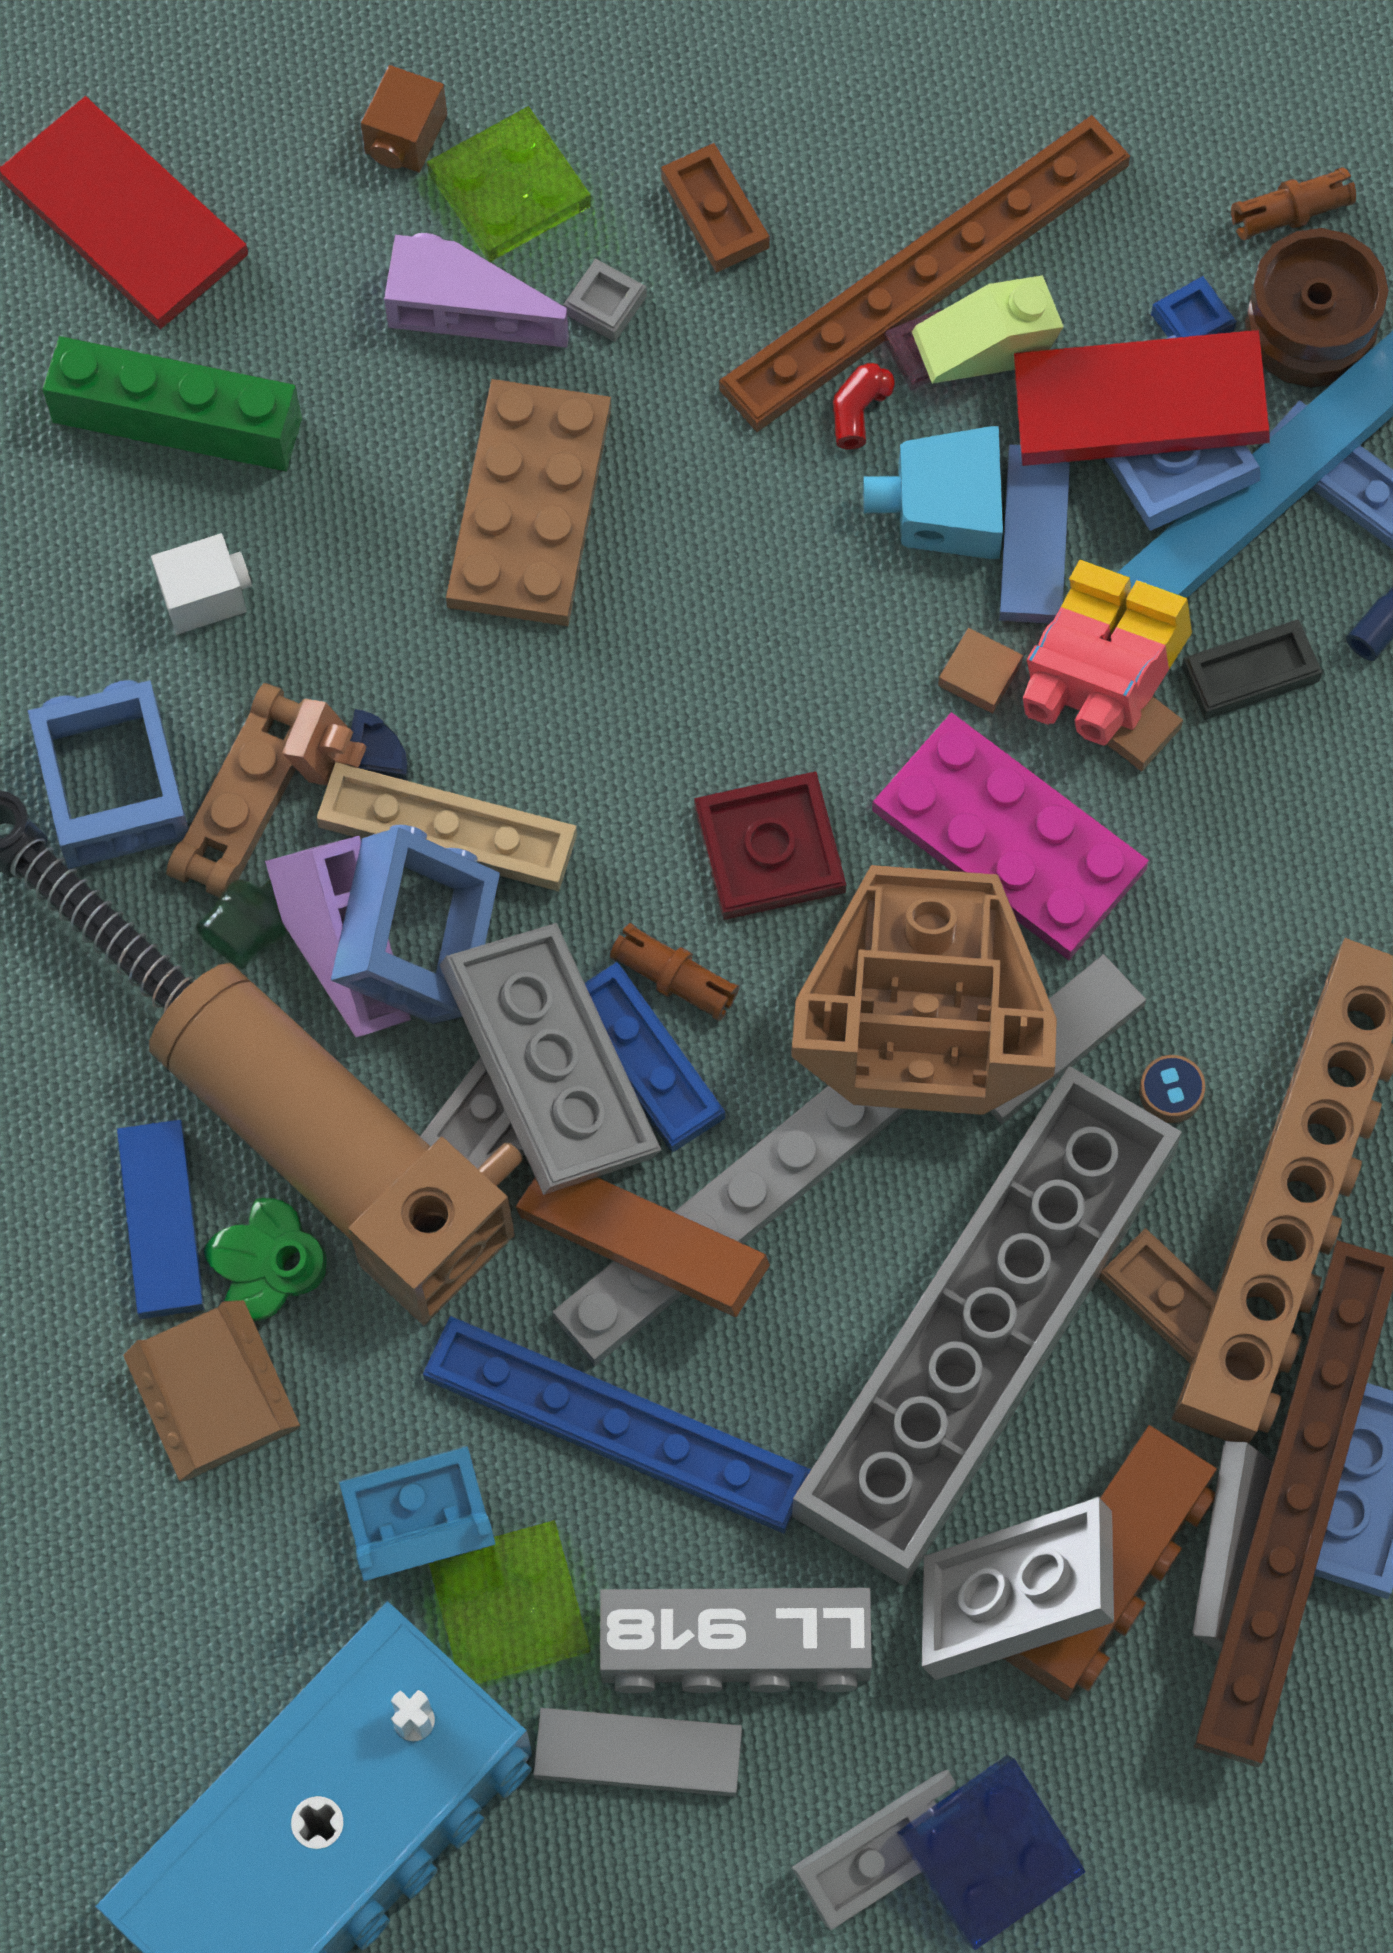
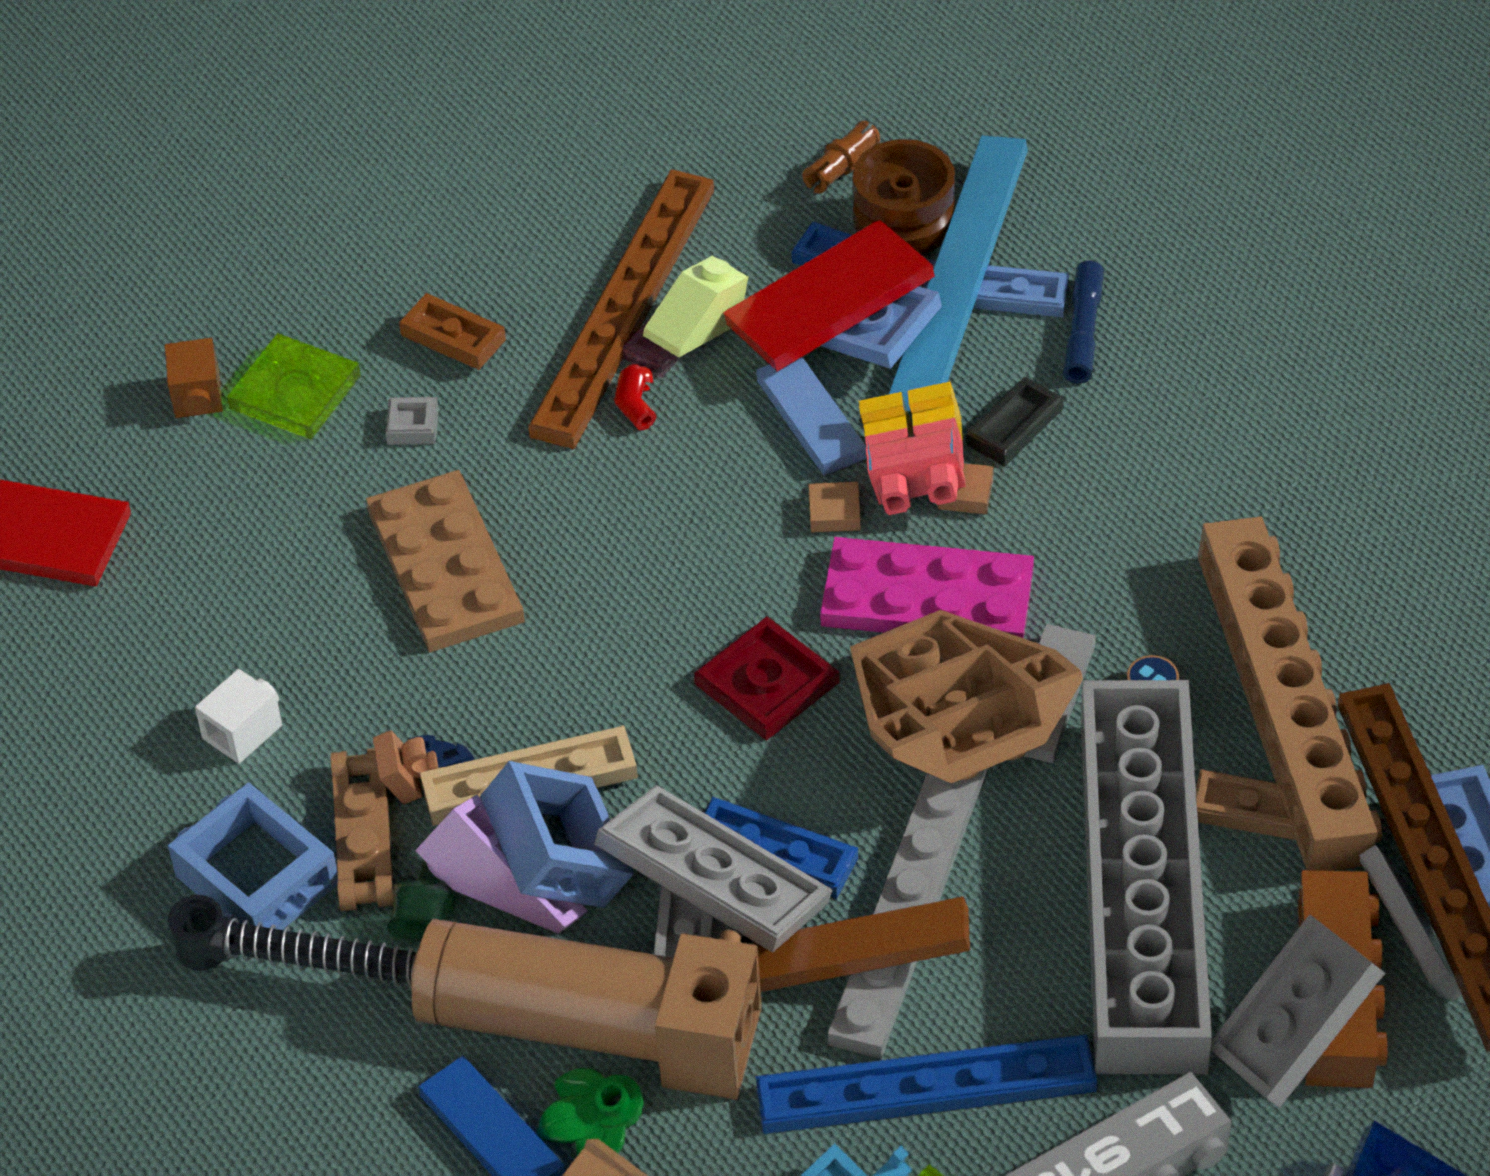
camera: 30 degrees left, 20 degrees down
(172, 403) = (142, 616): green brick -> none
(455, 292) = (314, 456): lavender slope -> none
(674, 972) = (758, 783): dark orange pin -> none
(945, 493) = (736, 415): medium azure torso -> none

